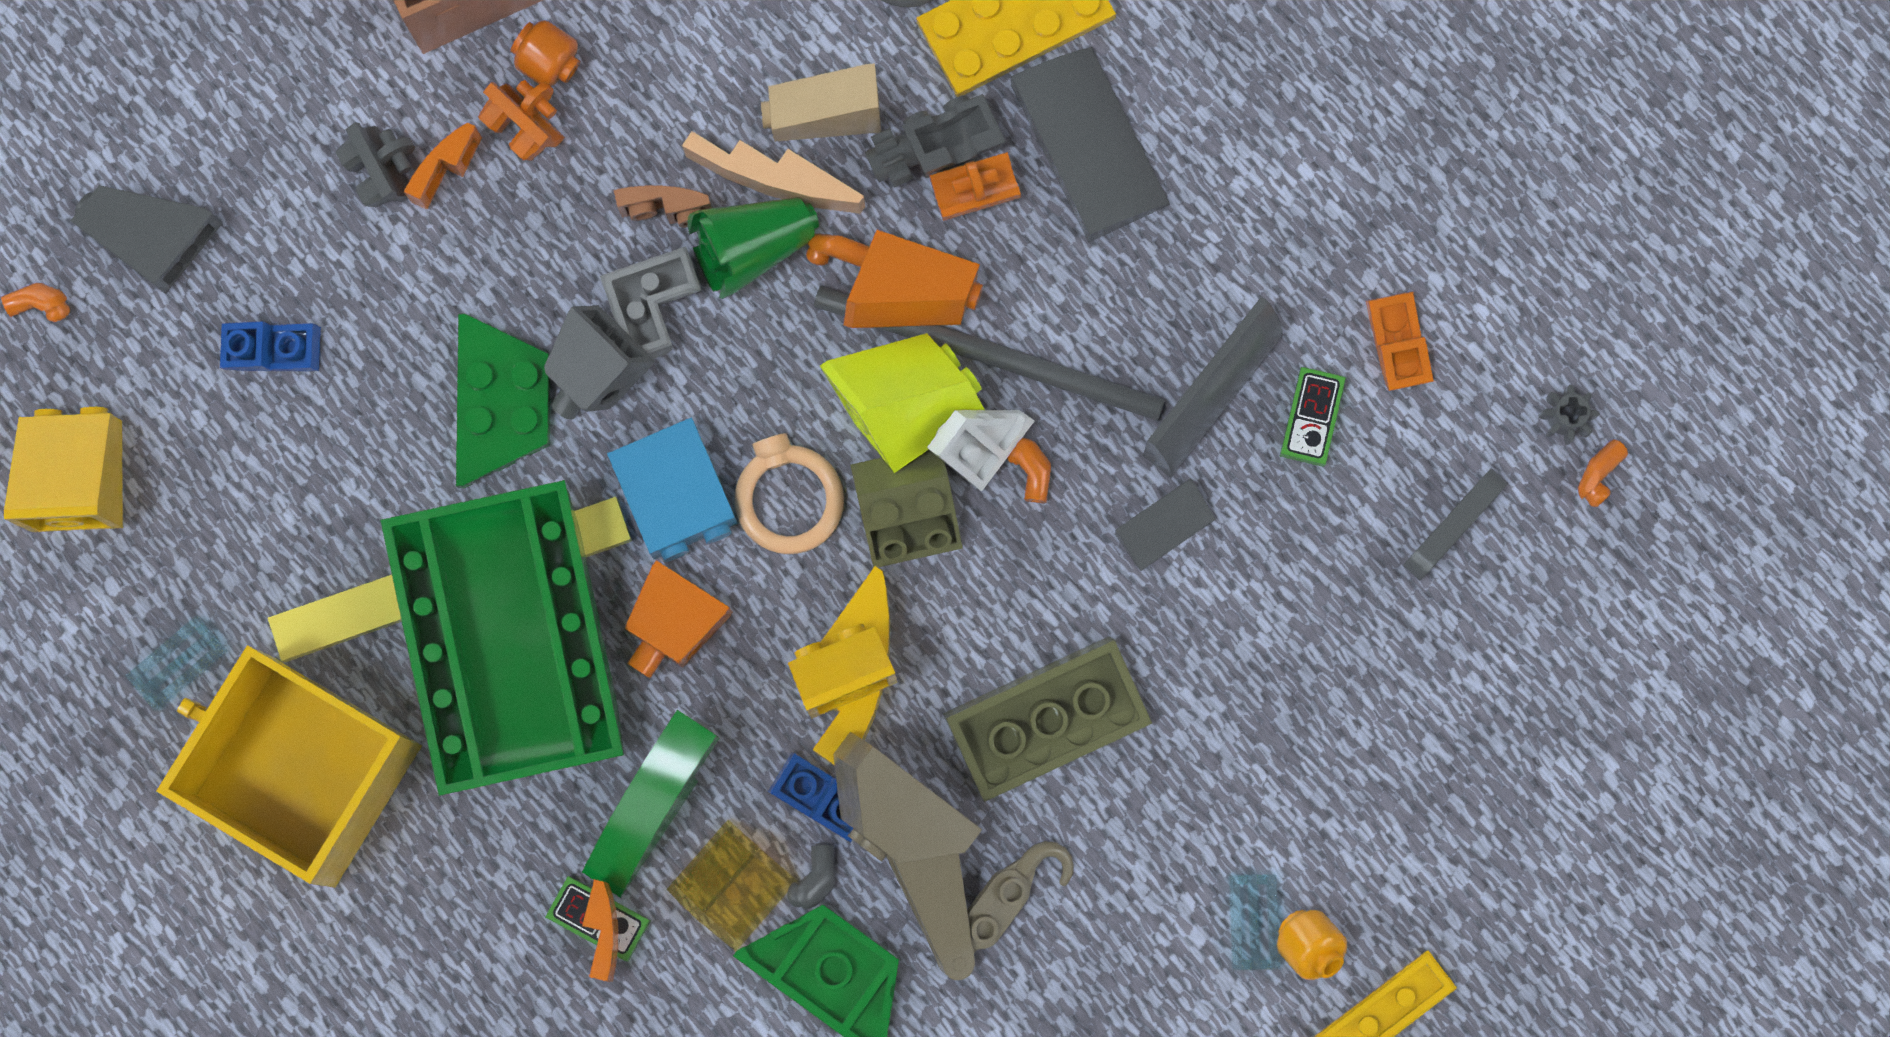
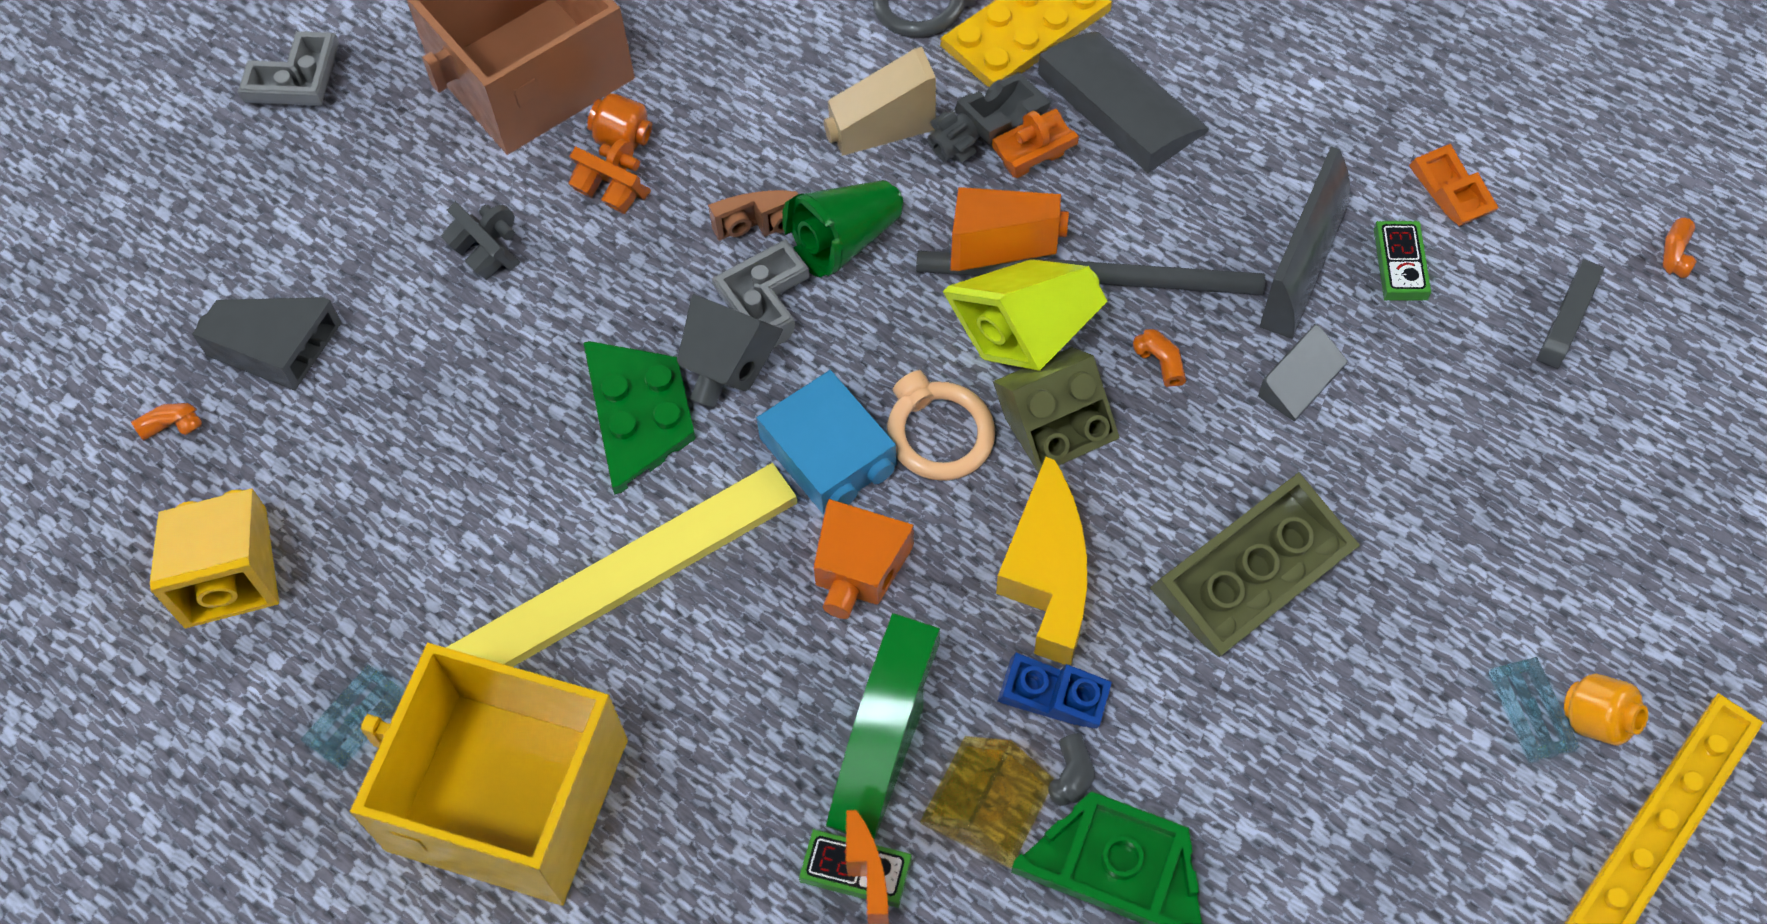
camera: 15 degrees left, 20 degrees down
(270, 347) = (398, 413): blue slope -> none
(451, 154) = (546, 219): orange slope -> none
(503, 637) = (693, 598): green slope -> none
(783, 180) = (834, 169): light nougat slope -> none
(836, 246) = (923, 212): orange arm -> none
(842, 670) = (1050, 545): yellow slope -> none
(922, 842) = (1168, 676): dark tan slope -> none
(979, 441) = (1109, 332): white wing -> none
(1560, 423) = (1630, 205): dark grey gear -> none

